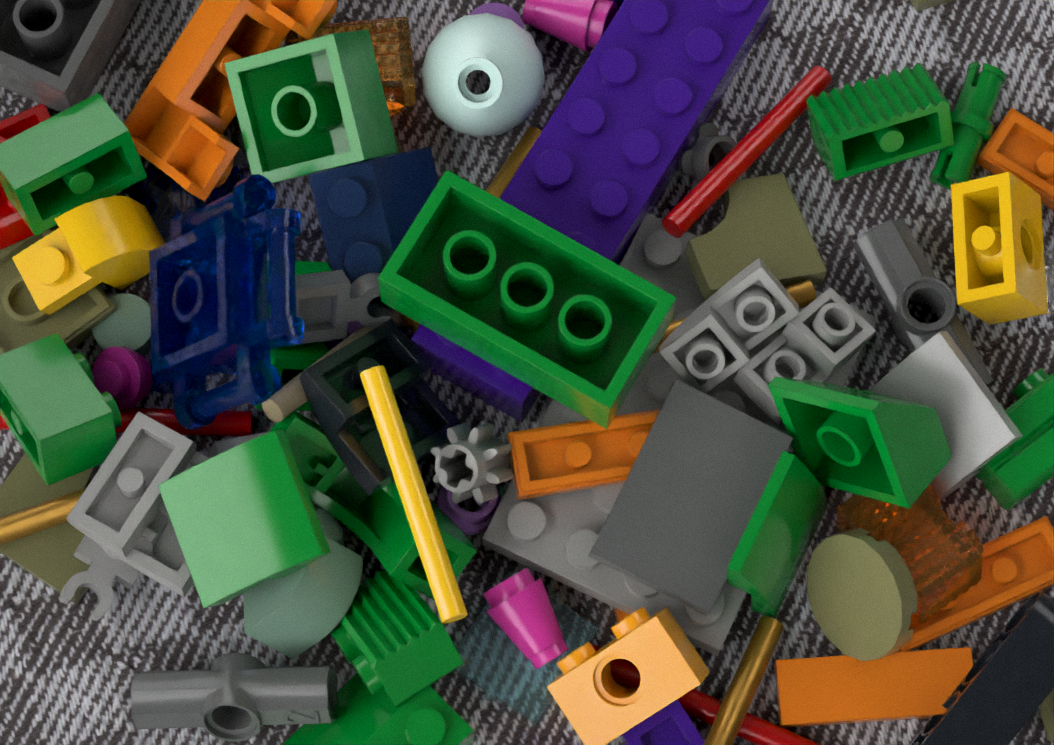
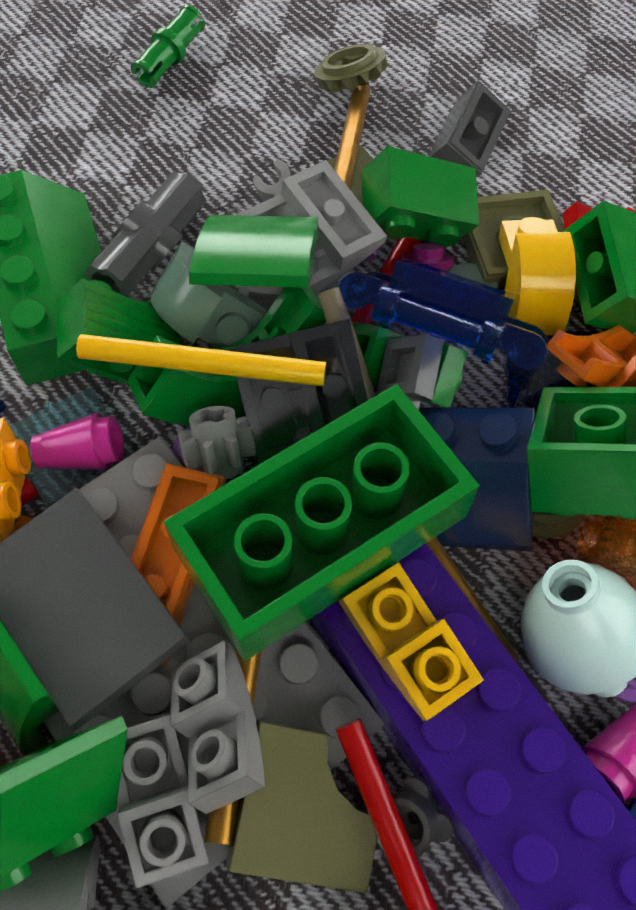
camera: 115 degrees right, 10 degrees down
(592, 186) = (409, 643): none -> yellow slope

